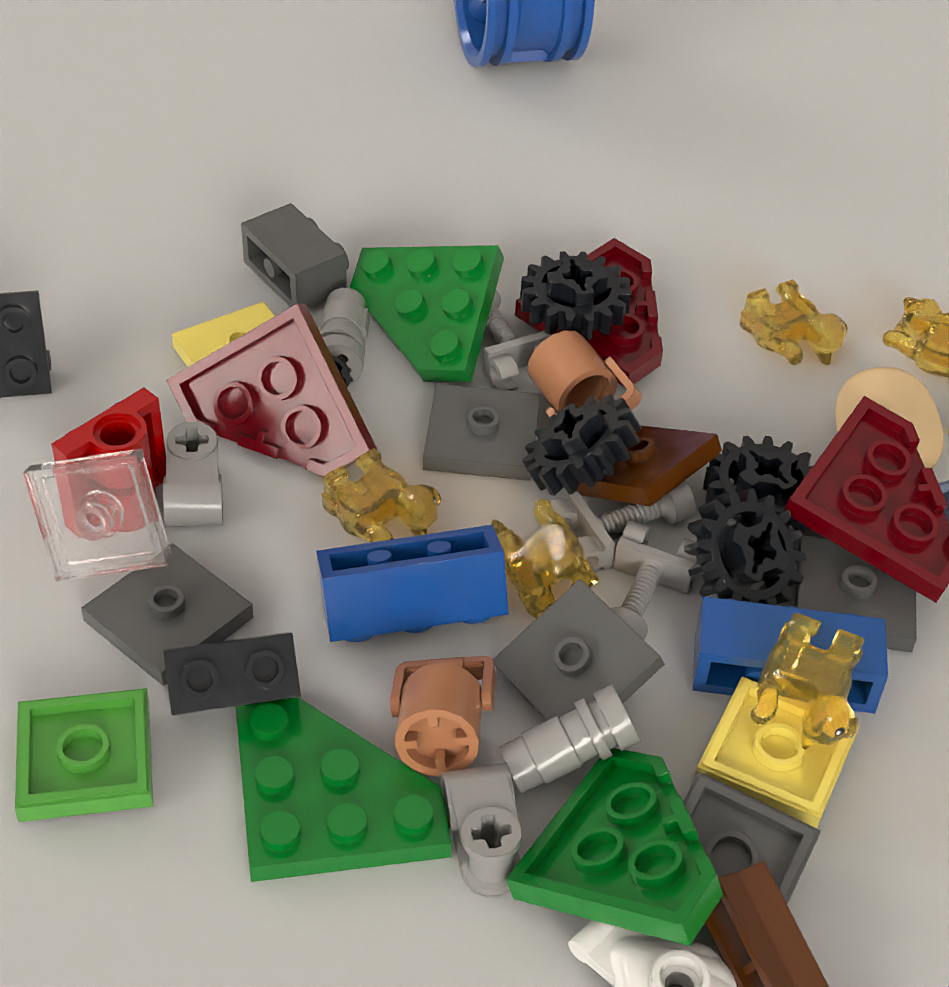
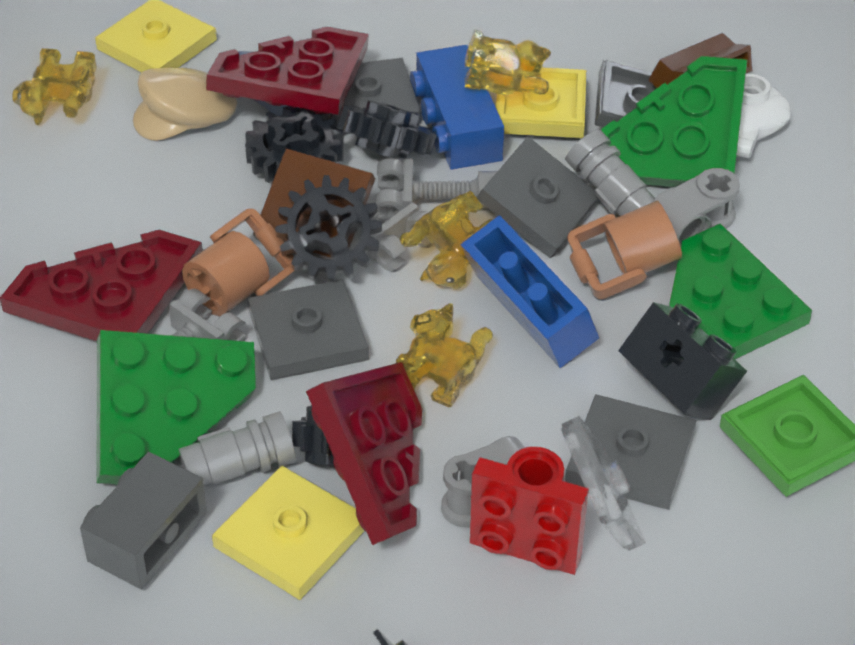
camera: 110 degrees left, 0 degrees up
(575, 294) = (131, 278): black gear -> none
(793, 320) = (77, 168): clear yellow animal -> none

